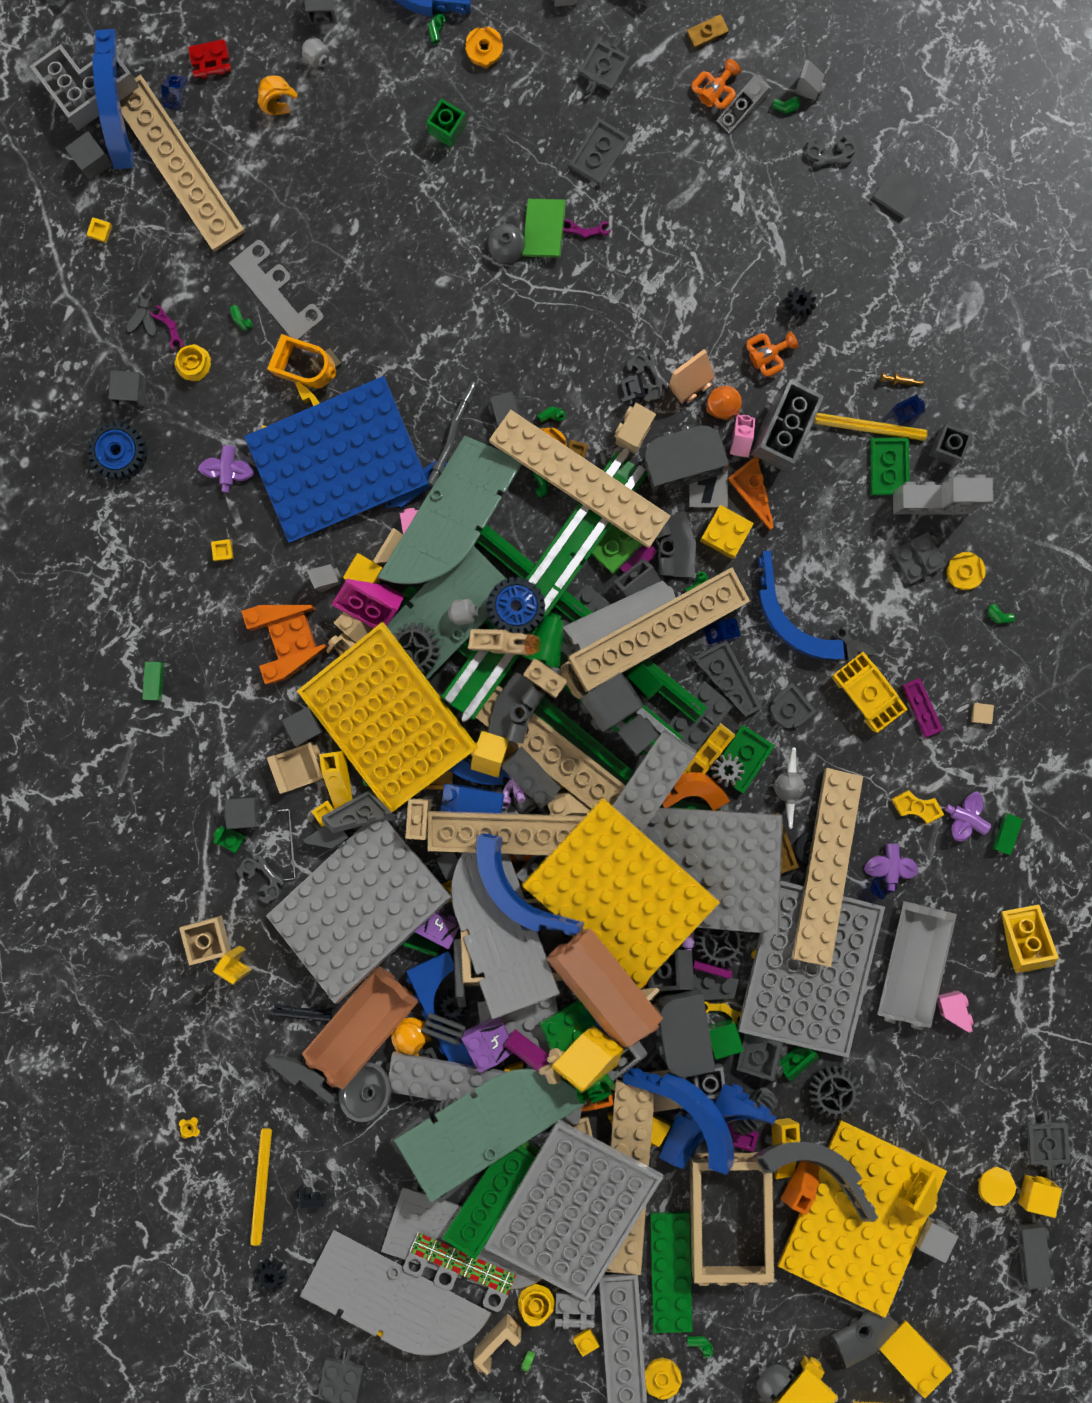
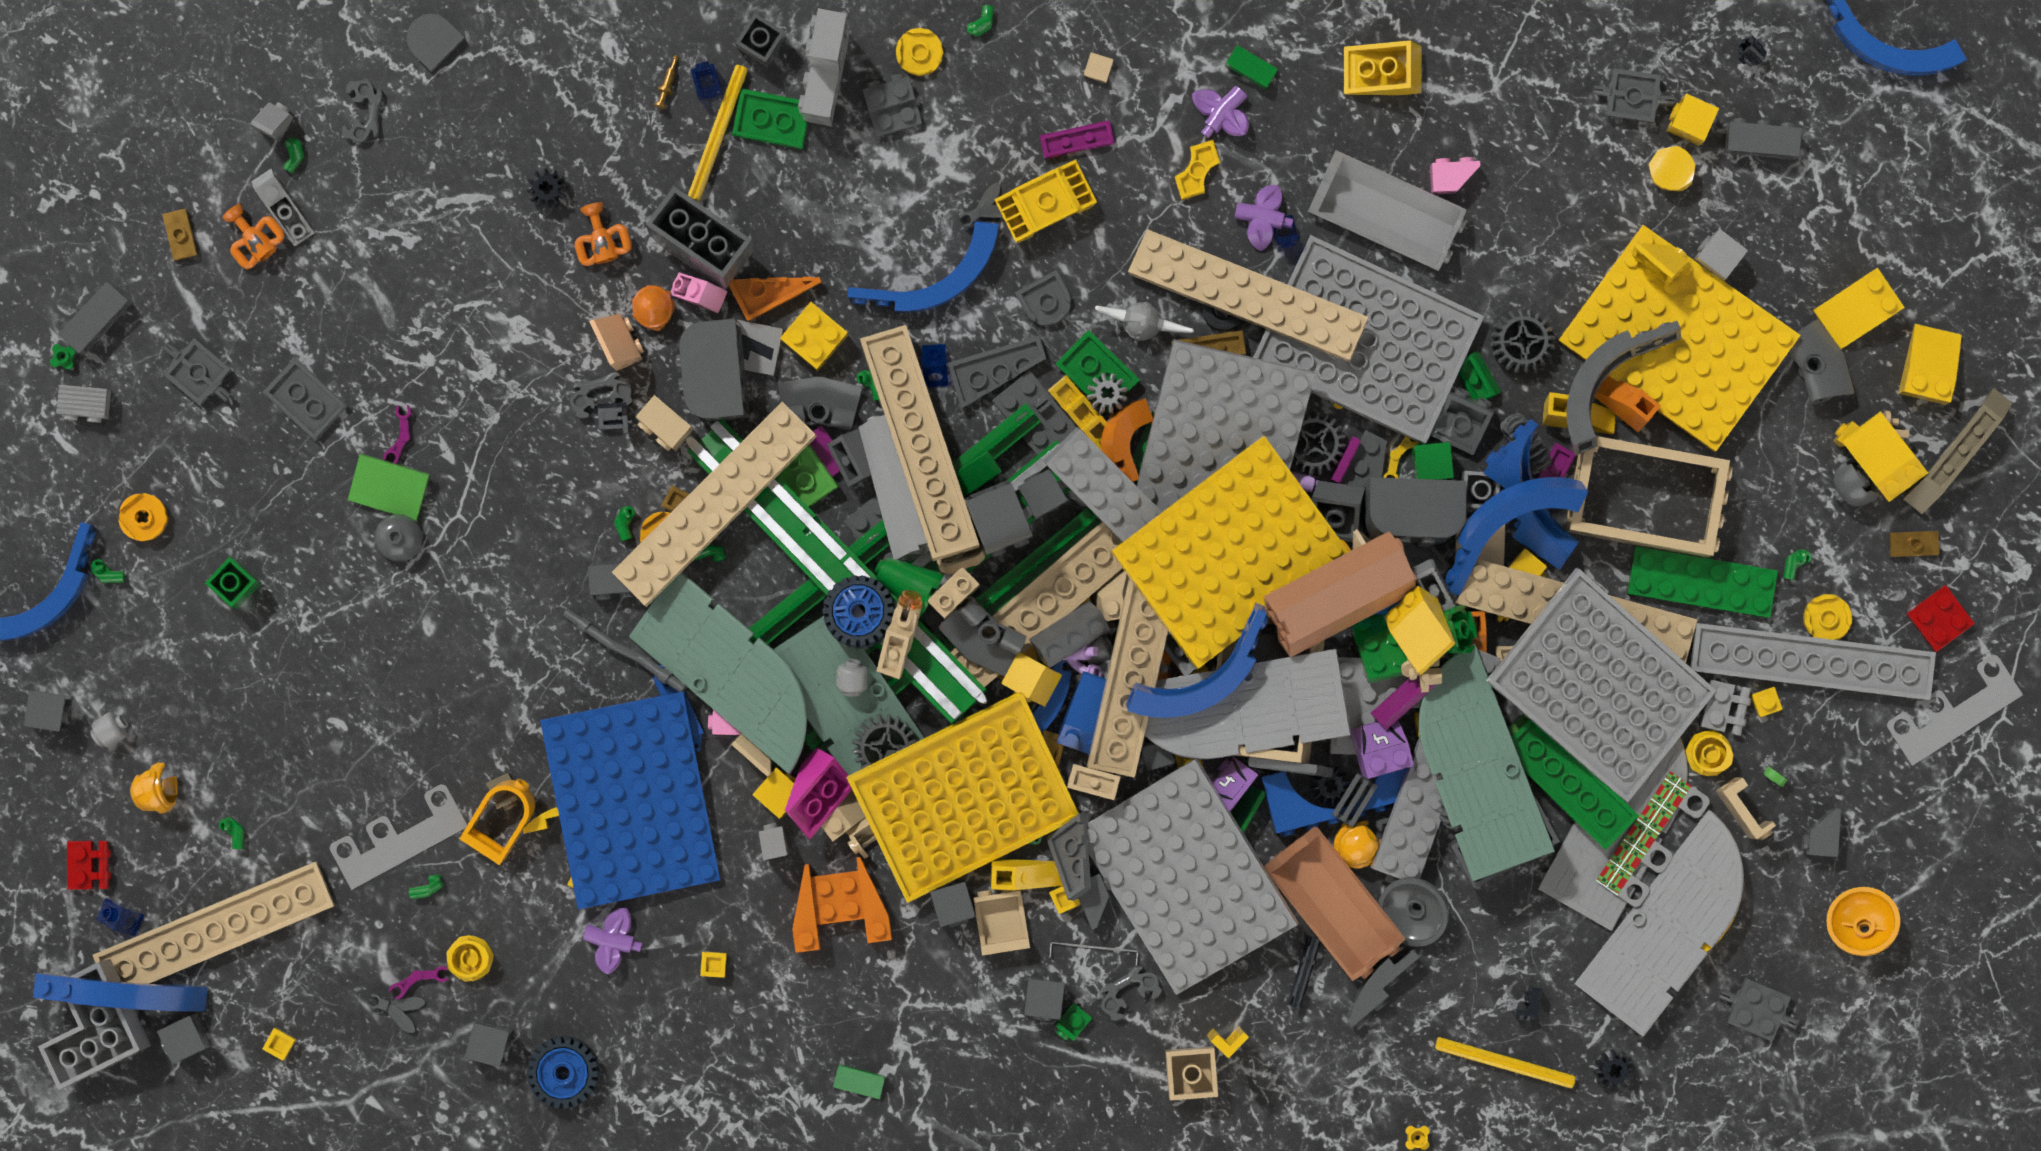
camera: 80 degrees left, 0 degrees up
(257, 165) = (235, 830): none -> green arm

